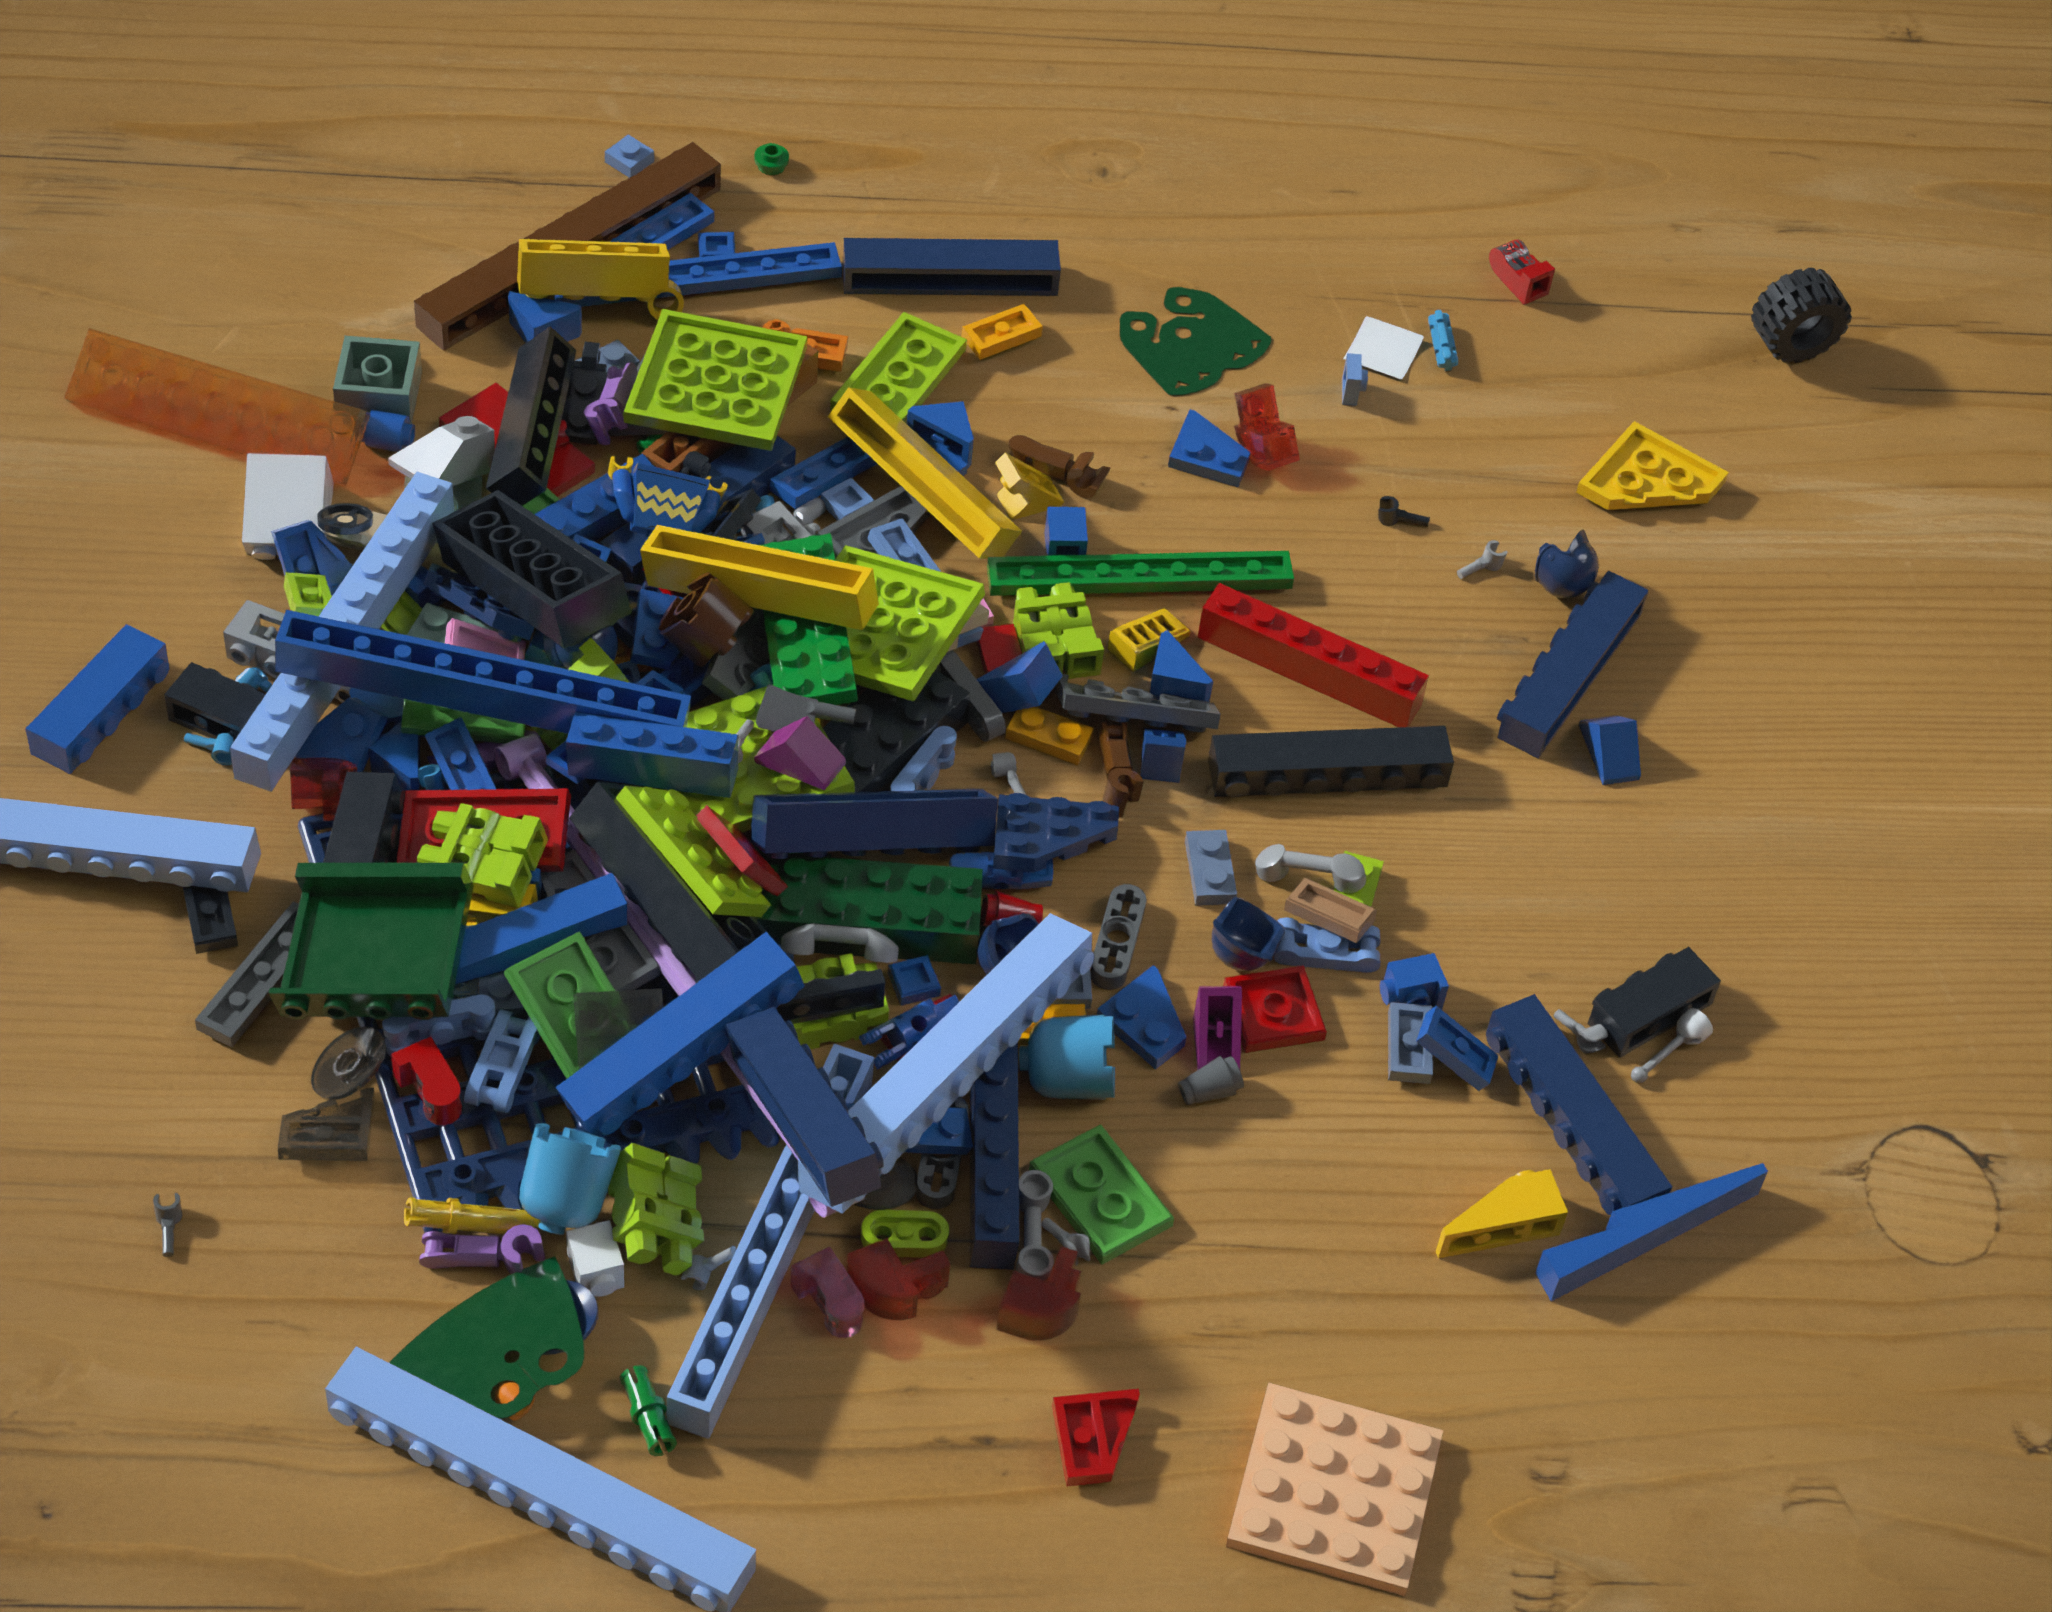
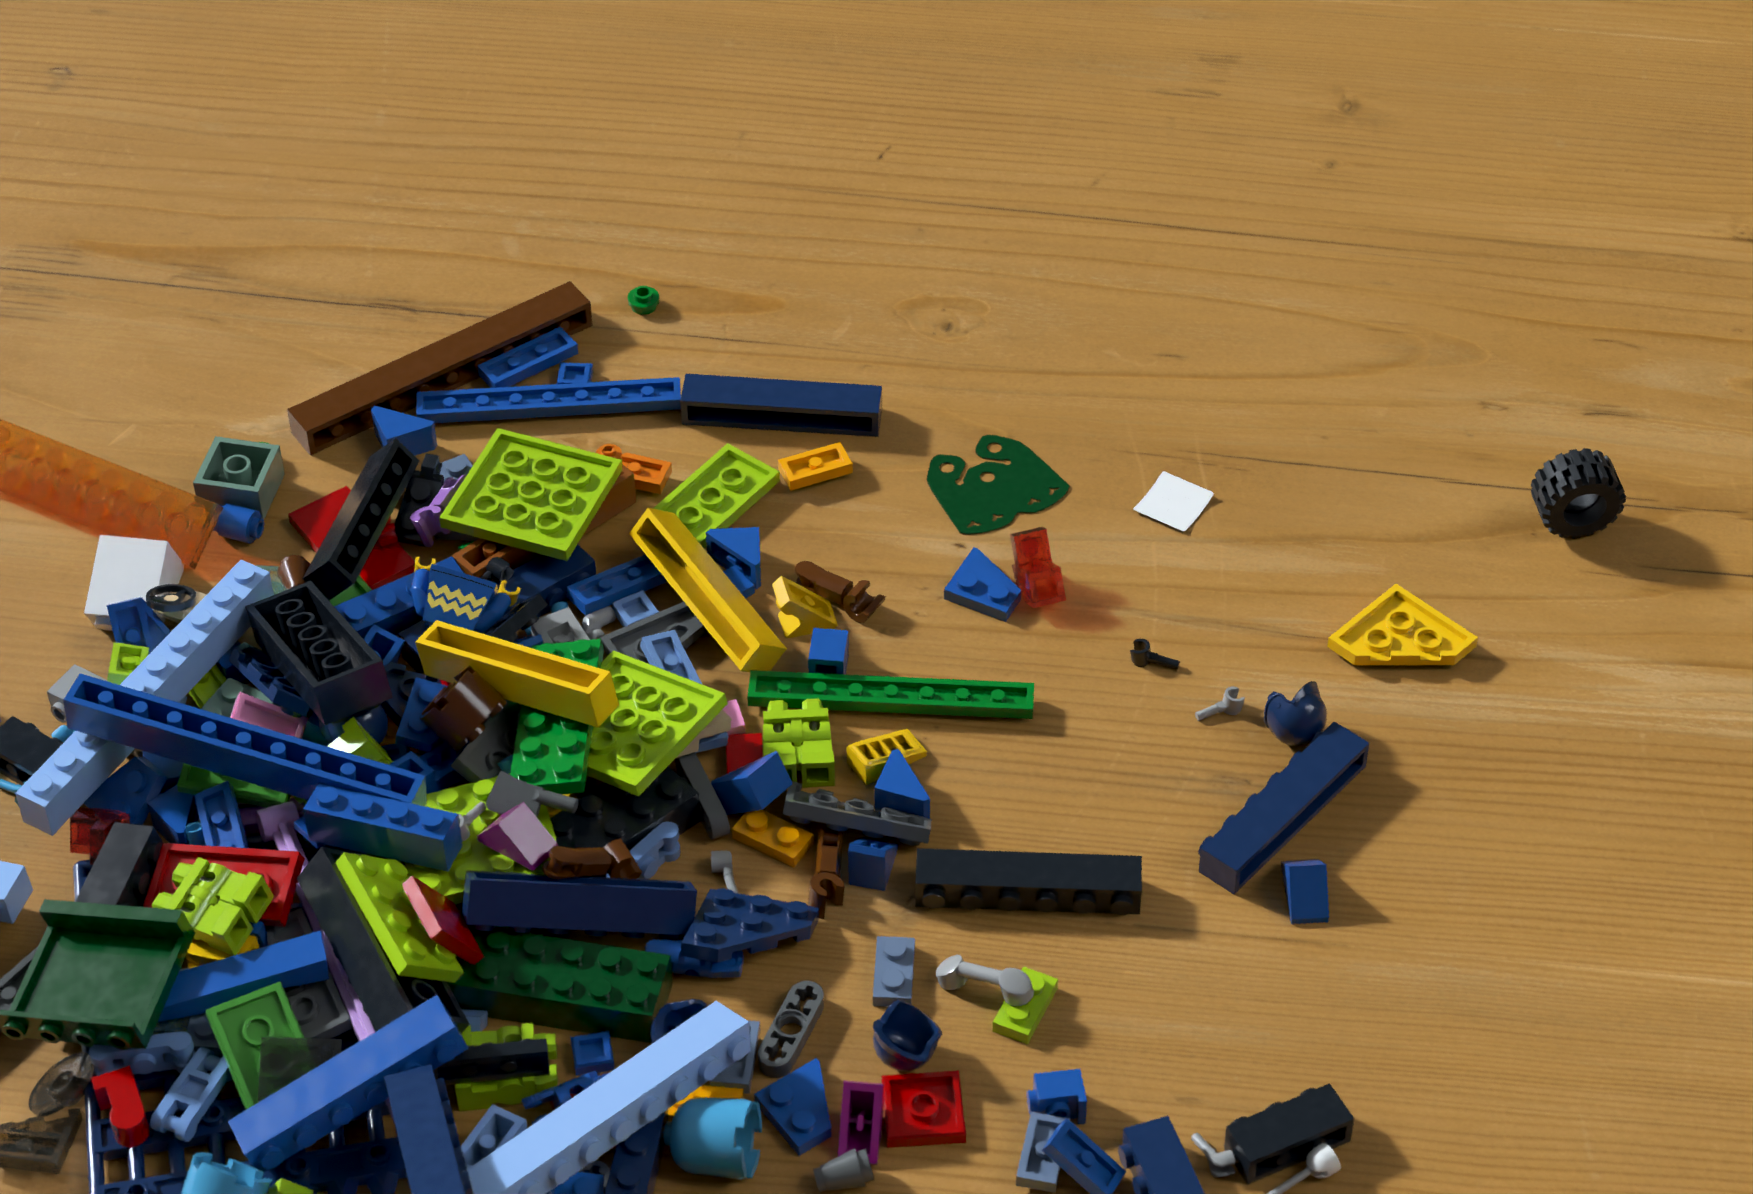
camera: 15 degrees right, 5 degrees down
(450, 452) = (288, 537): light grey slope -> none
(469, 482) = (292, 571): none -> reddish brown cone
(596, 270) = (451, 390): yellow hinge -> none
(629, 156) = (515, 290): medium blue plate -> none
(803, 938) = (557, 1020): light grey bar -> none
(898, 772) = (597, 861): none -> reddish brown piece
(1002, 905) = (688, 989): red cone -> none
(1312, 656) = (1034, 783): red brick -> none
(1326, 948) = (986, 1054): medium blue plate -> none
(1330, 910) = (993, 1020): medium nougat tile -> none
(1353, 379) = (1134, 529): medium blue plate -> none
(1443, 340) = (1230, 497): dark azure axle -> none
(1521, 271) = (1317, 435): red leg -> none

